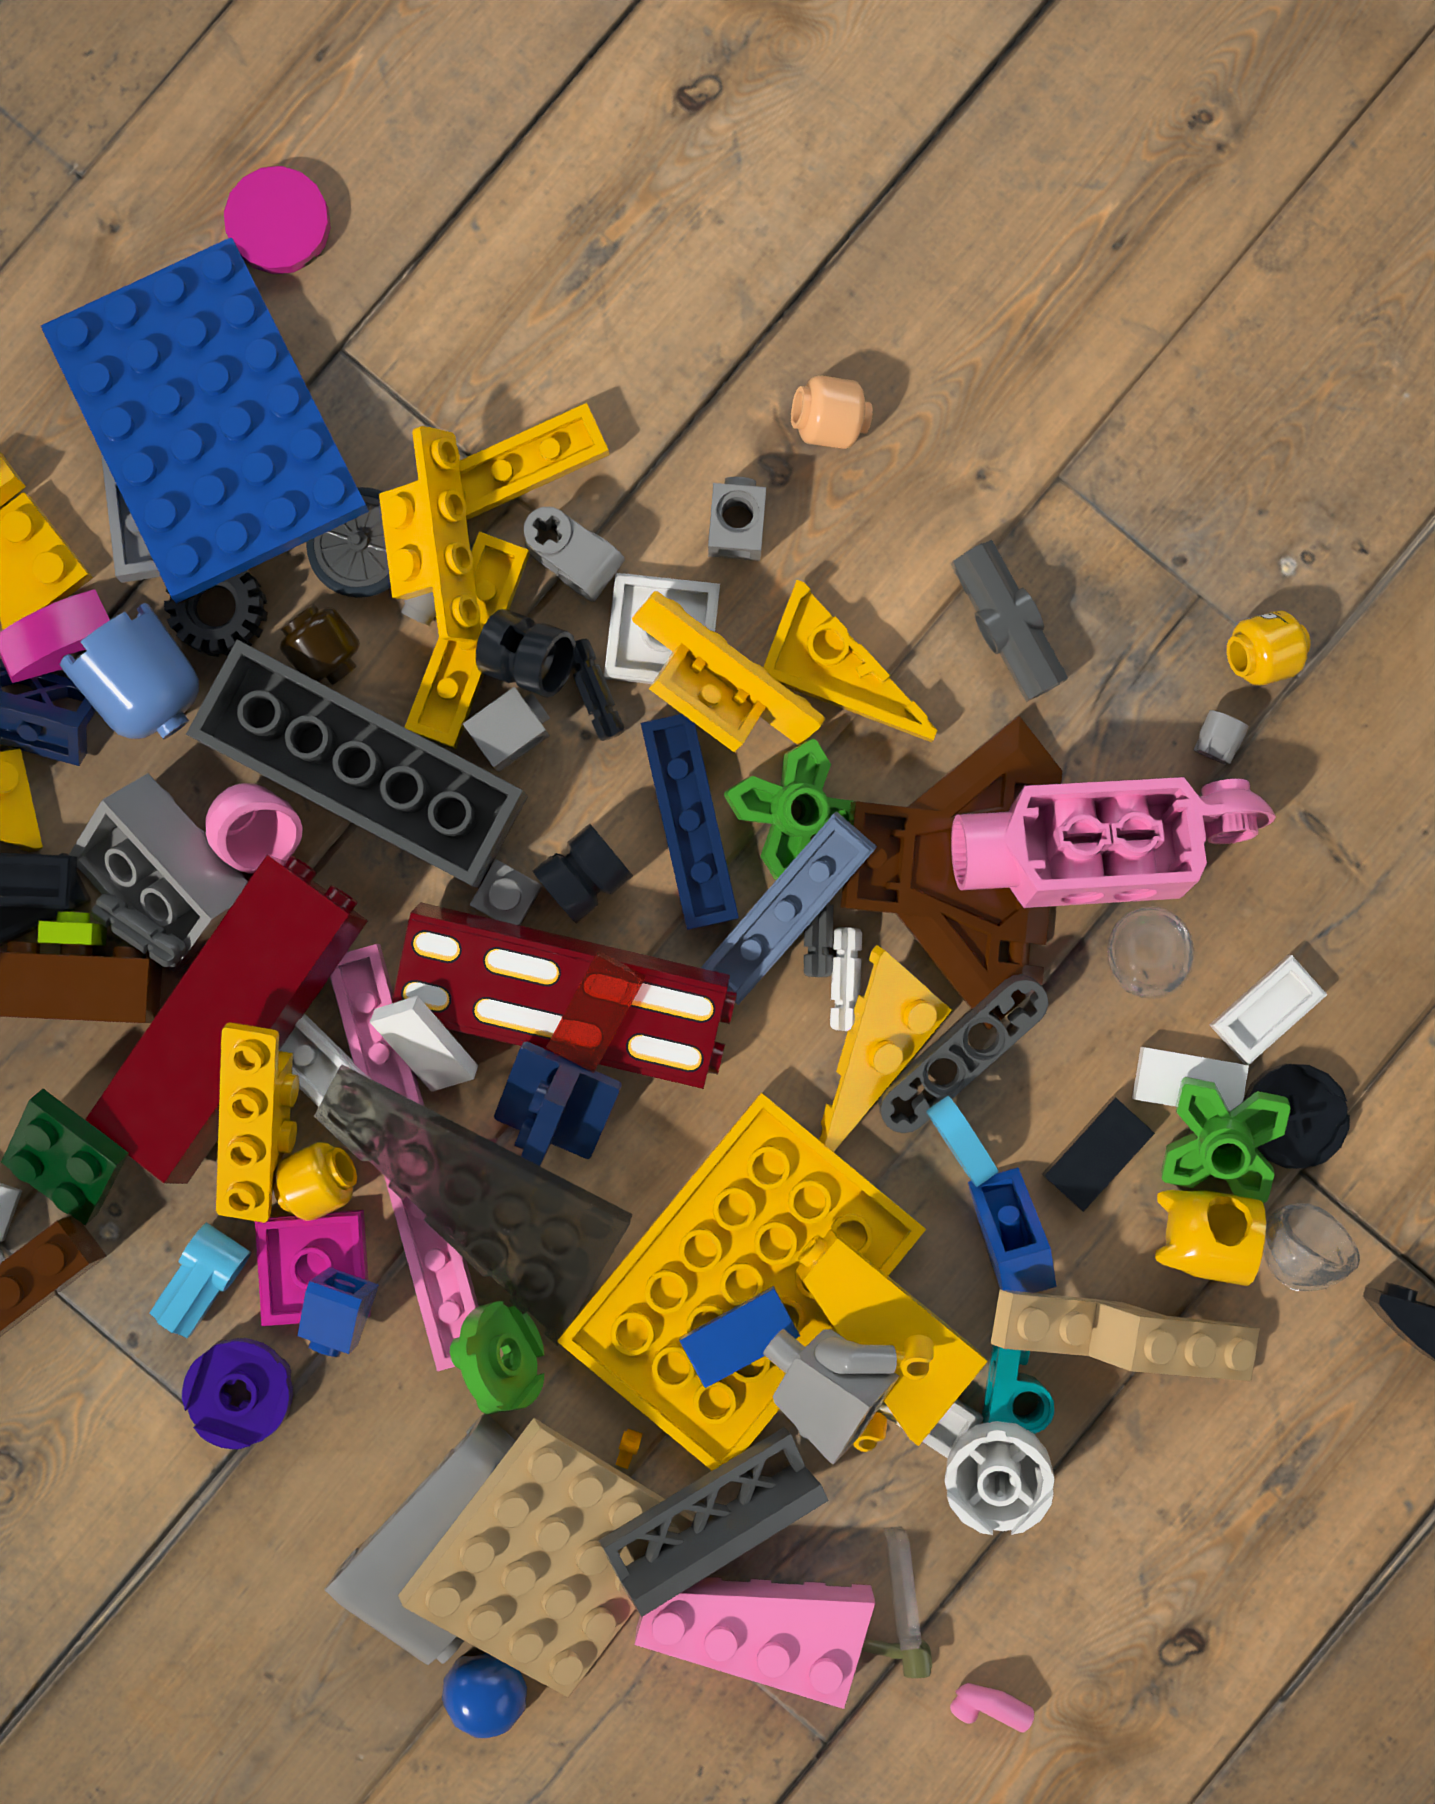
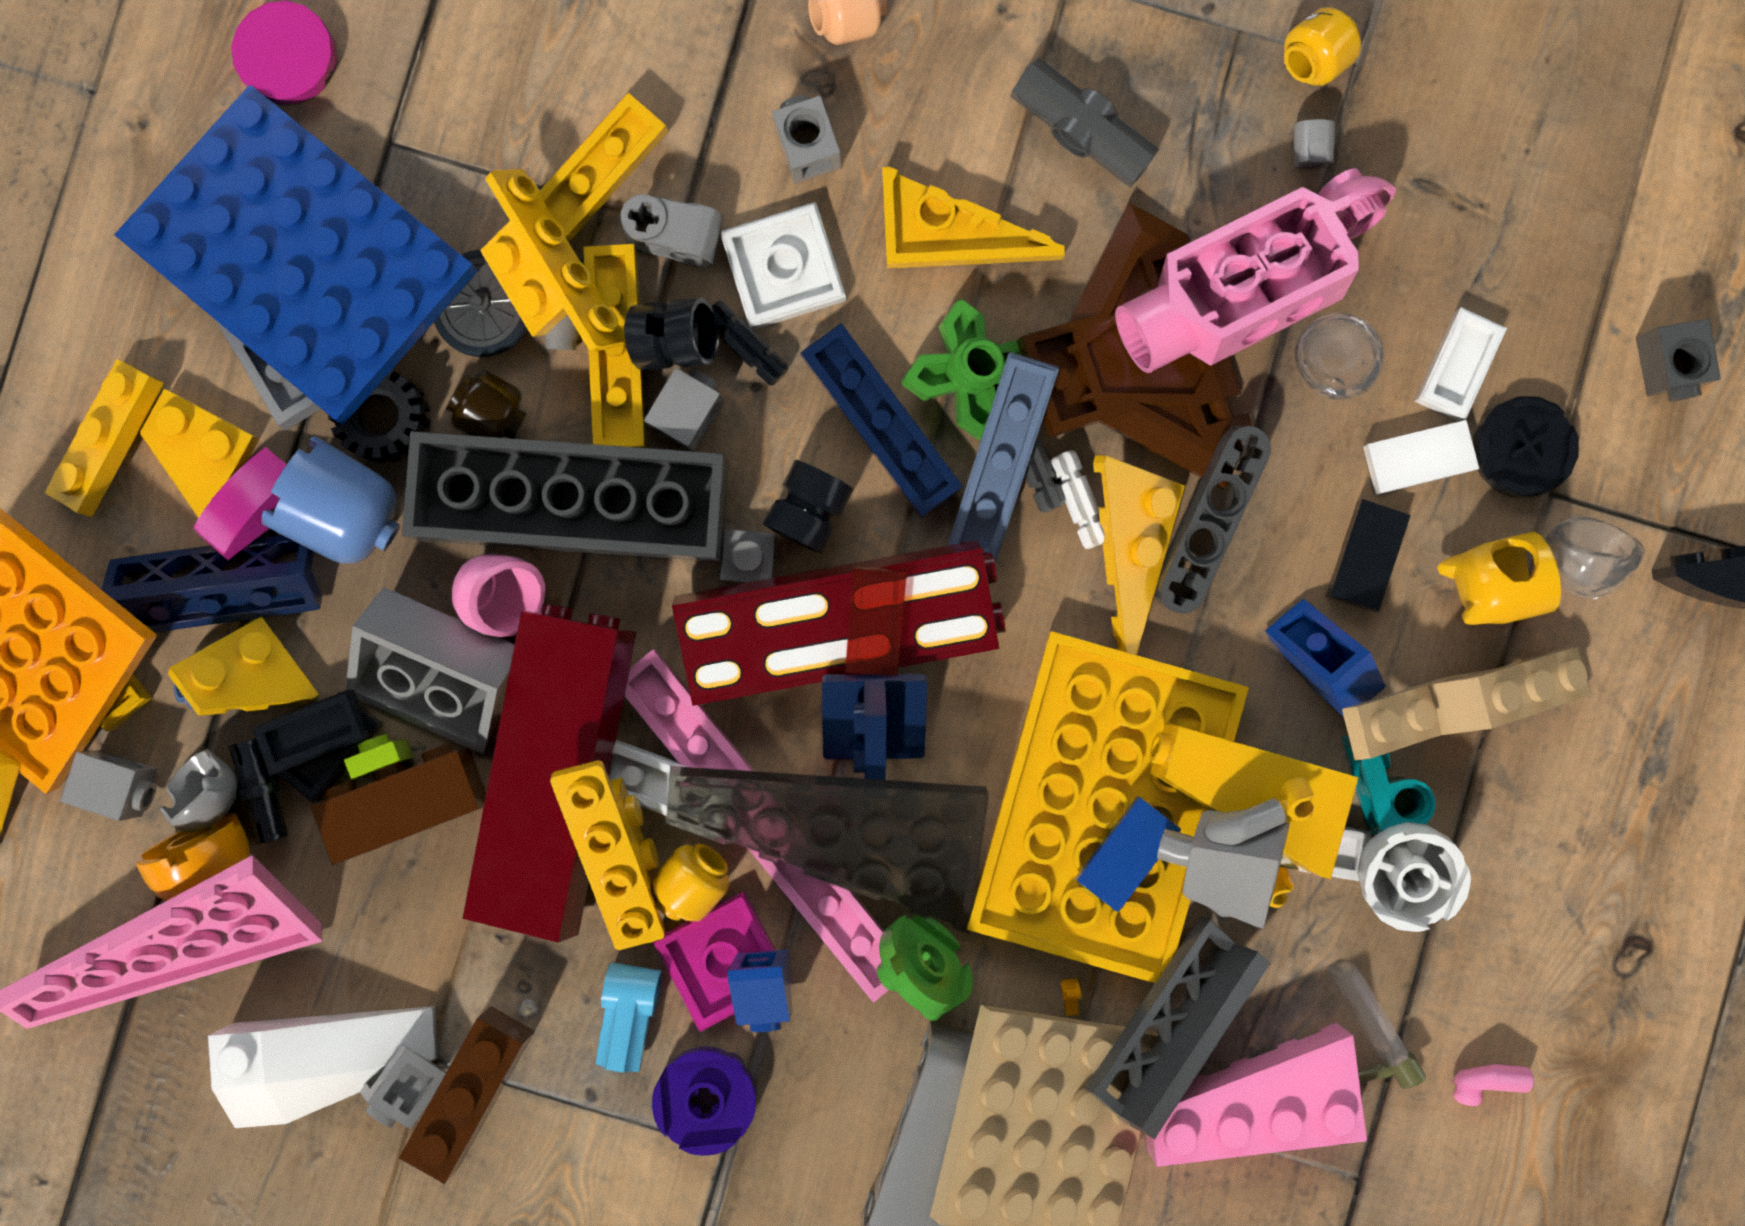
camera: 20 degrees left, 0 degrees up
(64, 1157) = (458, 959): dark green plate -> none
(138, 930) = (436, 729): dark grey axle -> none
(424, 1043) = (734, 717): white tile -> none
(717, 683) = (852, 285): yellow bracket -> none
(962, 1141) = (1246, 595): medium azure beam -> none
(1225, 1139) = (1476, 492): bright green plant -> none

